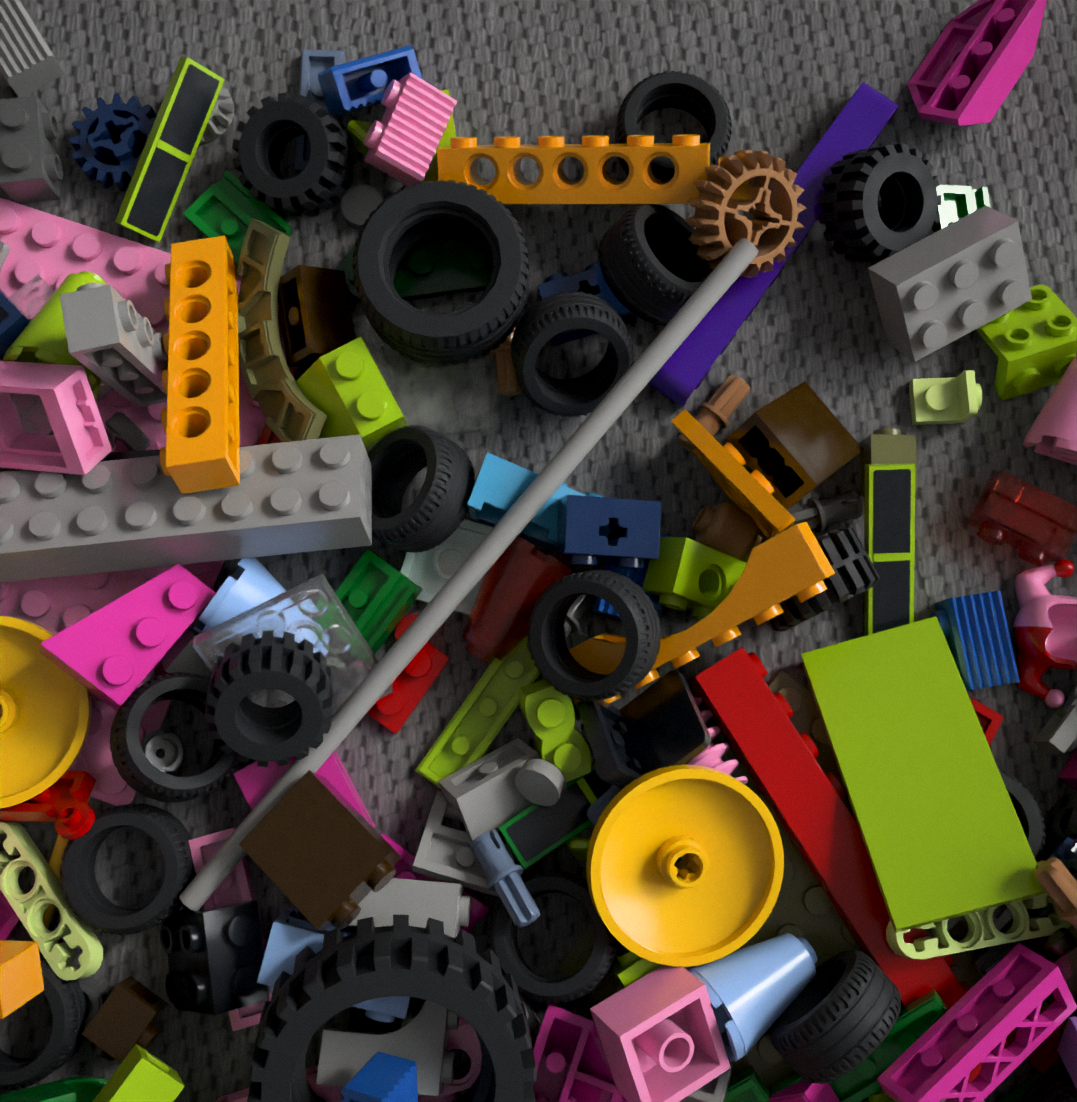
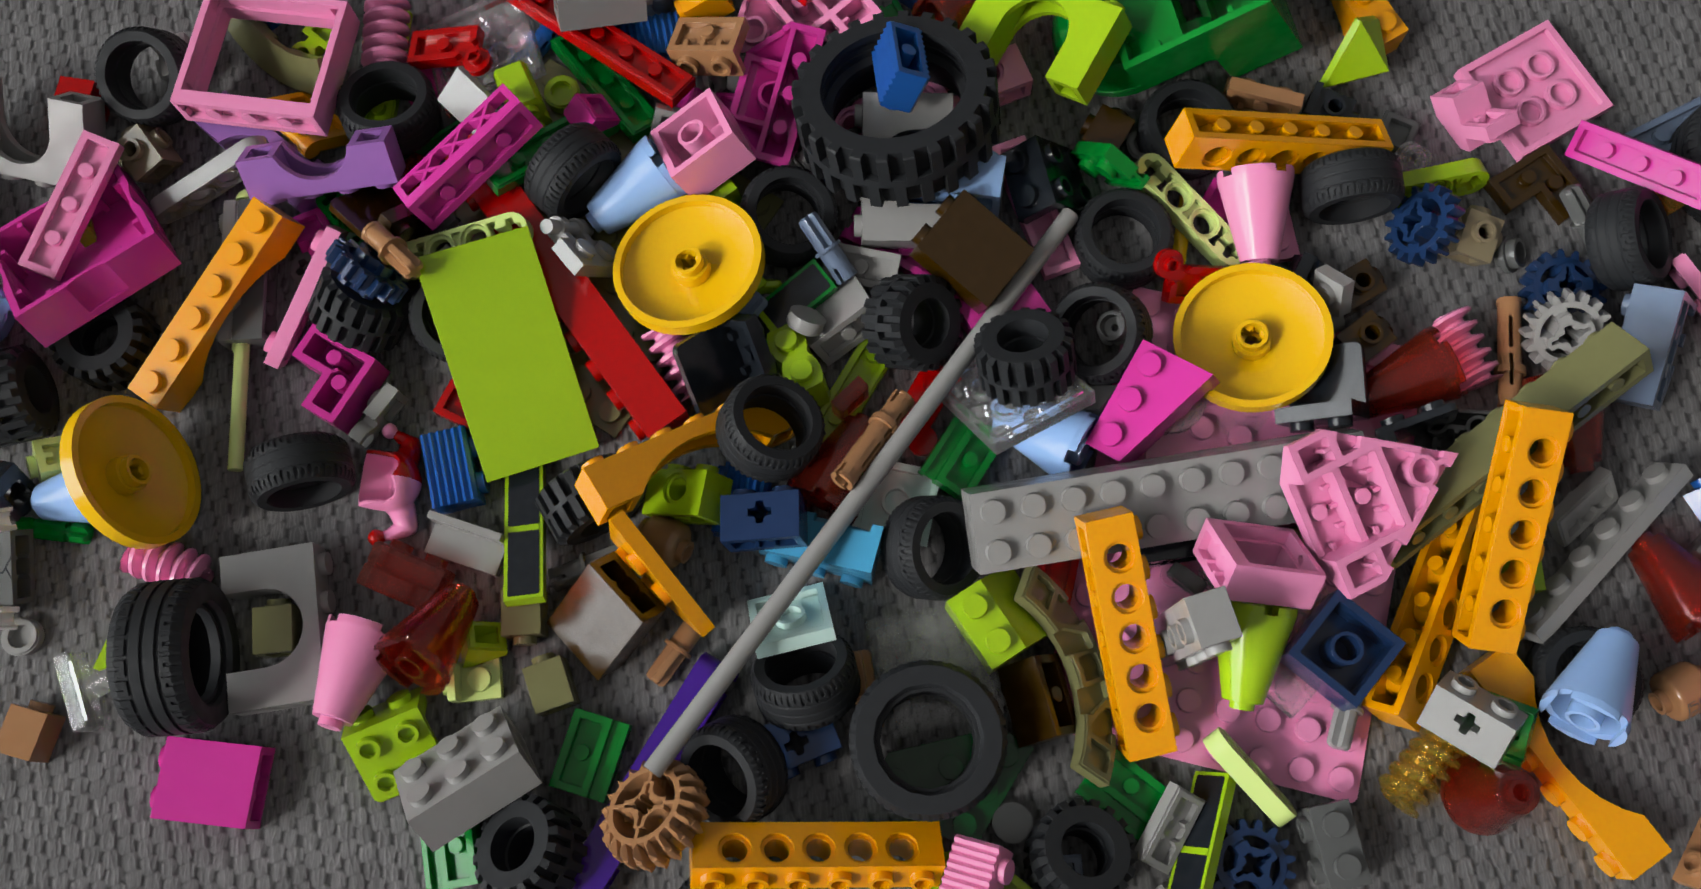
camera: 175 degrees left, 5 degrees down
(100, 222) = (1249, 777): none -> yellowish green beam
(127, 966) = (1110, 162): none -> green plate
(195, 177) = (1169, 827): none -> light grey plate
(407, 769) = (890, 322): none -> black tyre
(458, 632) = (880, 429): none -> medium nougat pin
(494, 682) = (850, 398): none -> clear red tile
(564, 410) = (801, 625): none -> light aqua tile
(813, 309) = (590, 755): none -> green plate
(817, 896) = (577, 248): none -> light grey plate
(857, 384) = (550, 684): none -> olive brick
(936, 438) = (483, 644): none -> lime slope
(958, 554) = (466, 544): none -> light grey panel
(995, 433) = (429, 640): none -> clear red cone

